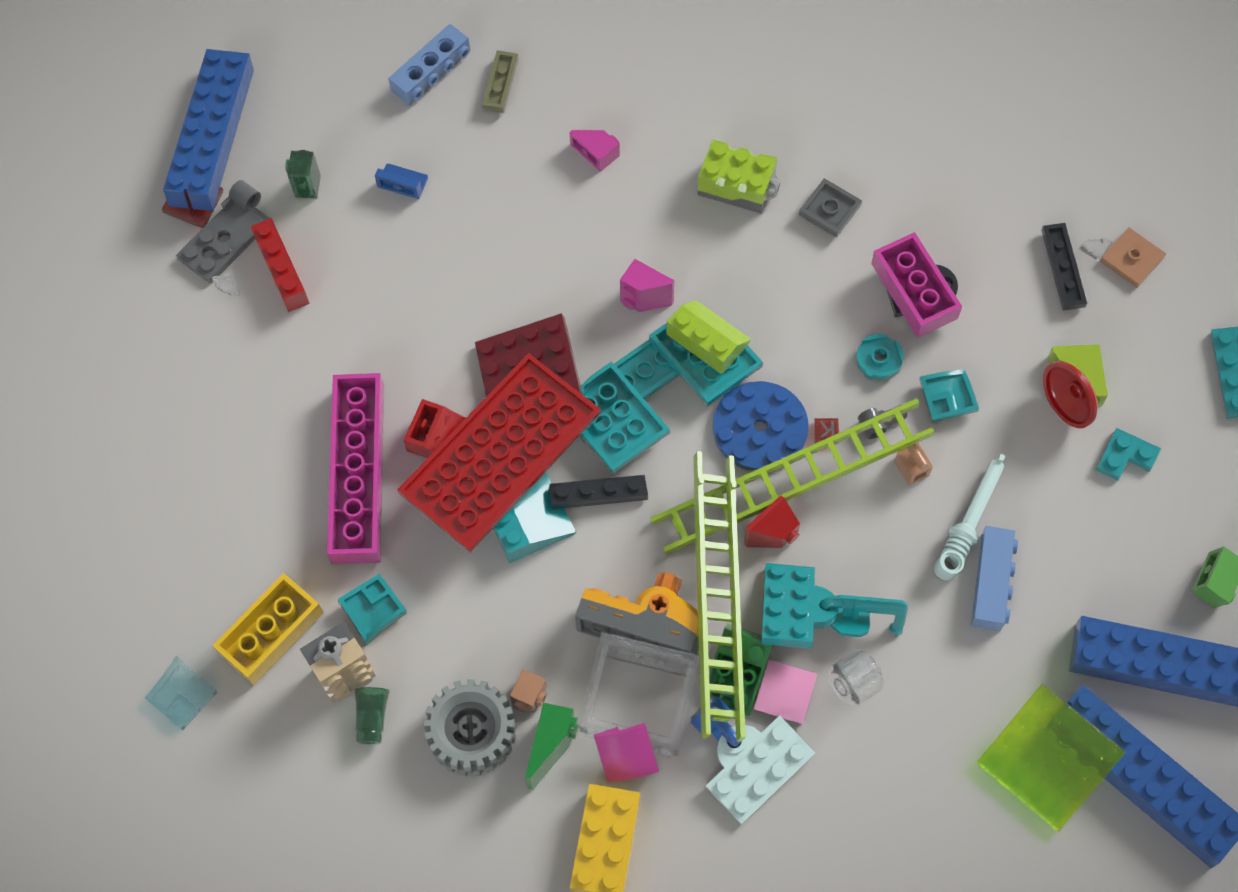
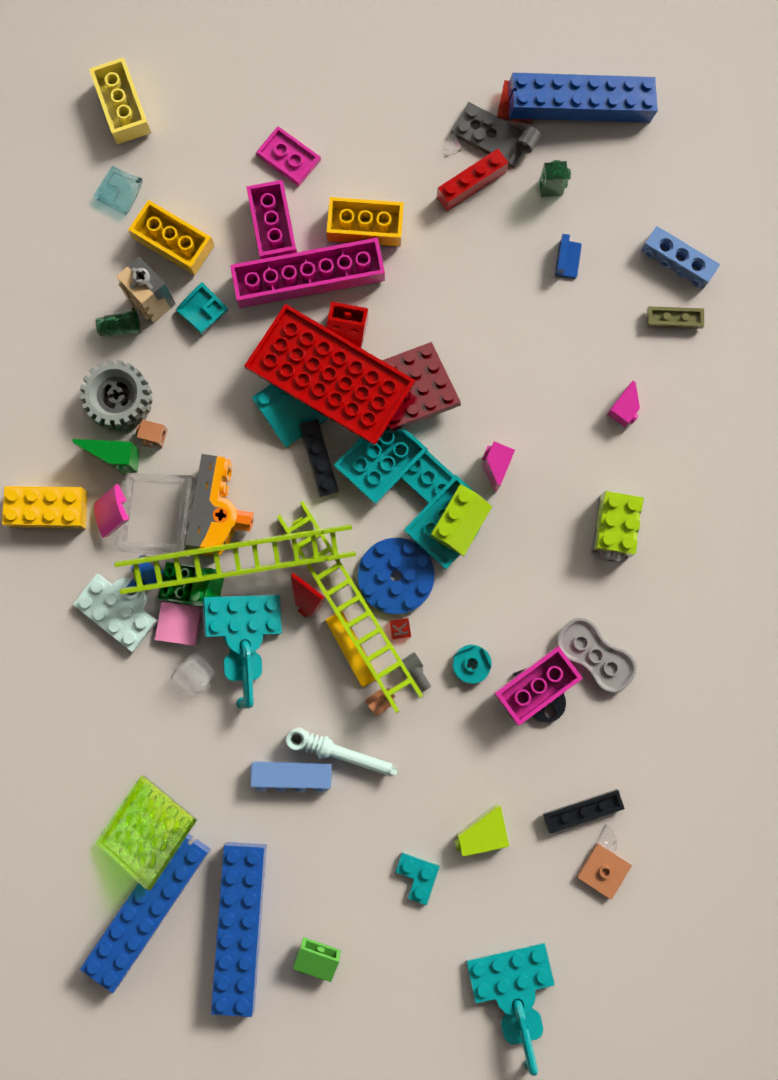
camera: 75 degrees right, 15 degrees up
(57, 671) = (120, 100): none -> light yellow brick
(189, 475) = (288, 156): none -> dark pink tile
(277, 501) = (271, 219): none -> dark pink brick
(304, 391) = (363, 220): none -> yellow brick
(830, 207) = (604, 607): dark grey plate -> none
(866, 479) = (349, 650): none -> yellow slope
(898, 213) = (609, 666): none -> light grey plate
(948, 395) = (446, 724): teal plate -> none
(1070, 394) = (456, 825): red dish -> none

